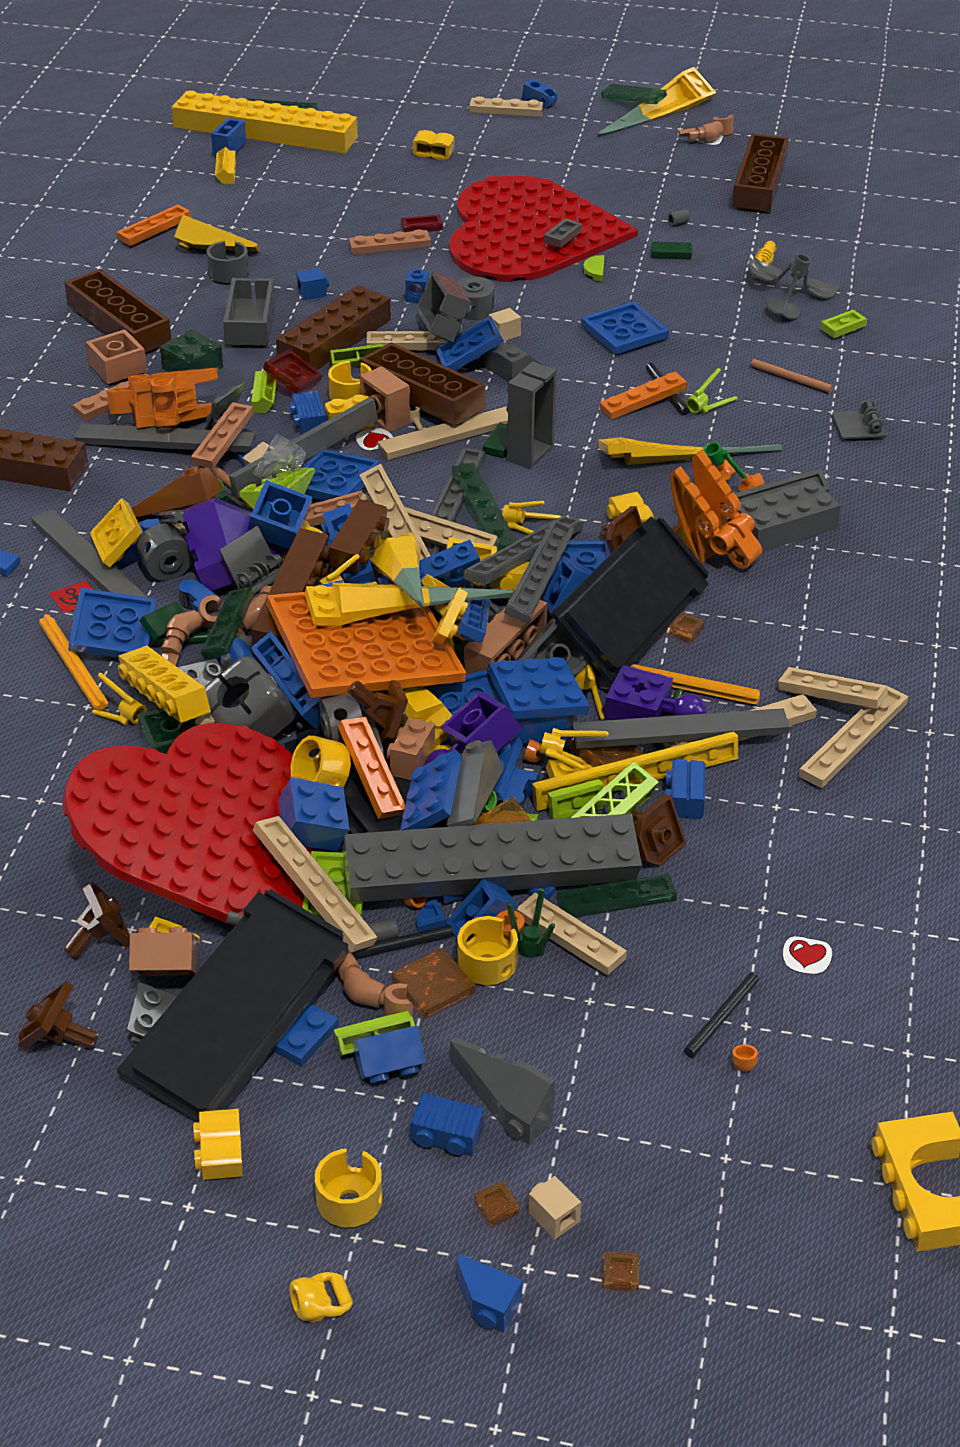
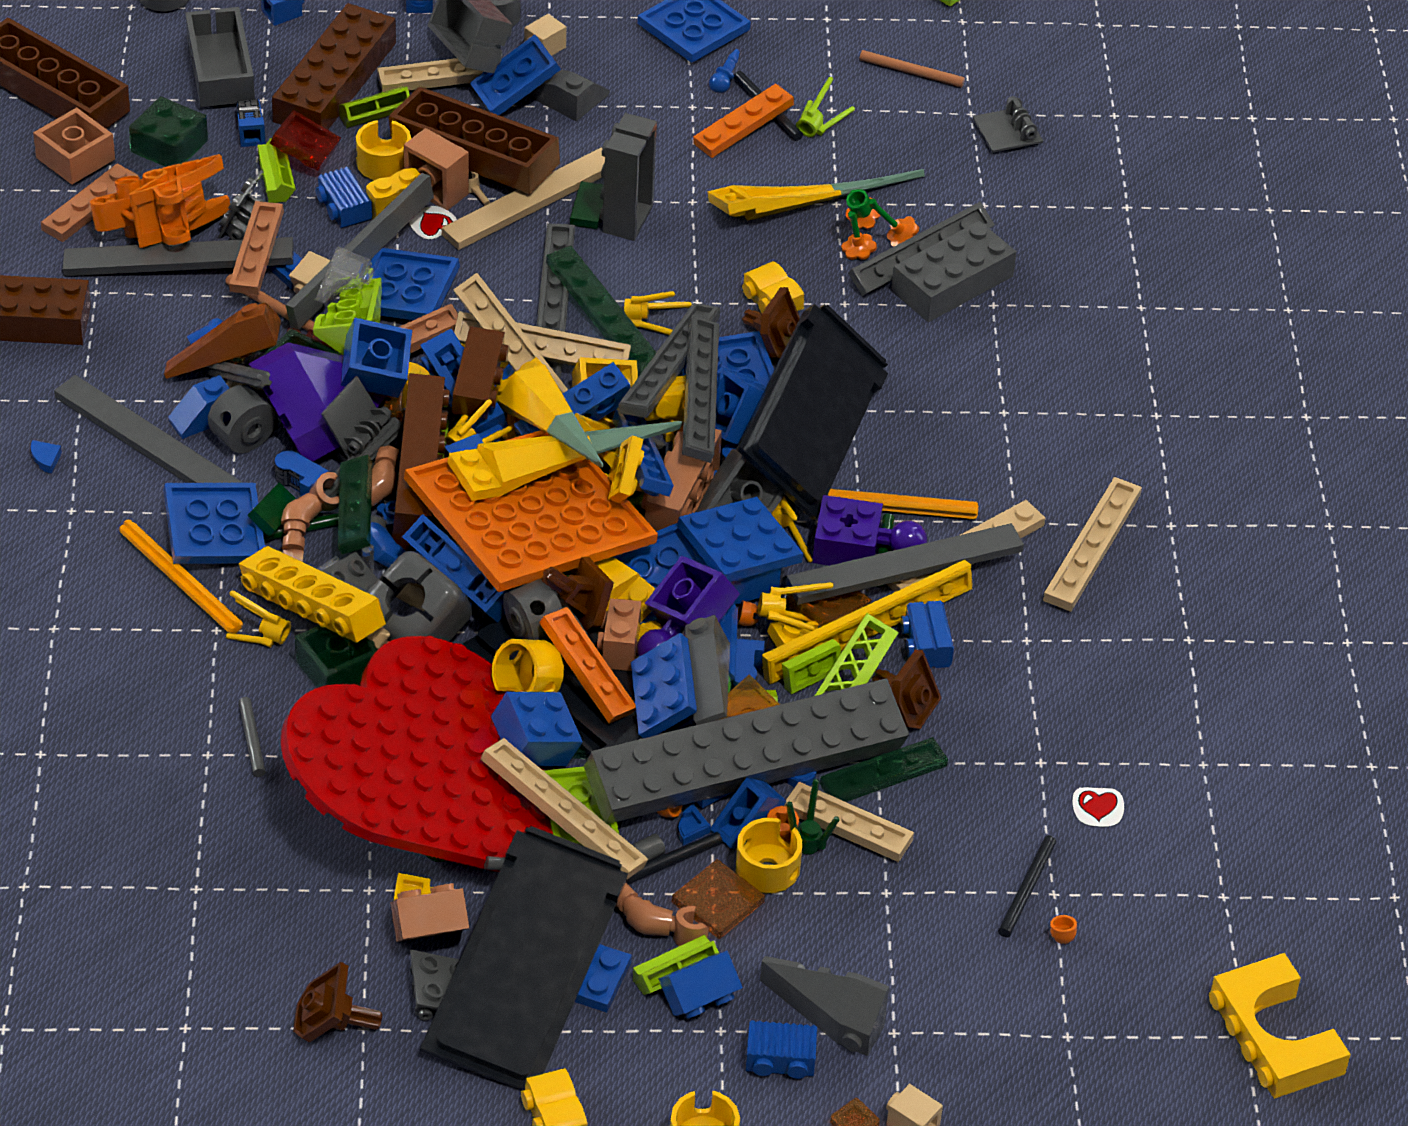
camera: 15 degrees left, 5 degrees up
(68, 597) = (143, 488): red sticker -> none
(97, 921) = (337, 889): reddish brown piece -> none
(116, 533) = (174, 400): yellow plate -> none
(256, 355) = (250, 120): none -> blue leg
(635, 368) = (721, 79): none -> blue bar
(686, 626) = (876, 431): clear orange plate -> none
(704, 511) = (865, 292): orange piece -> none
(833, 687) = (1058, 488): tan plate -> none

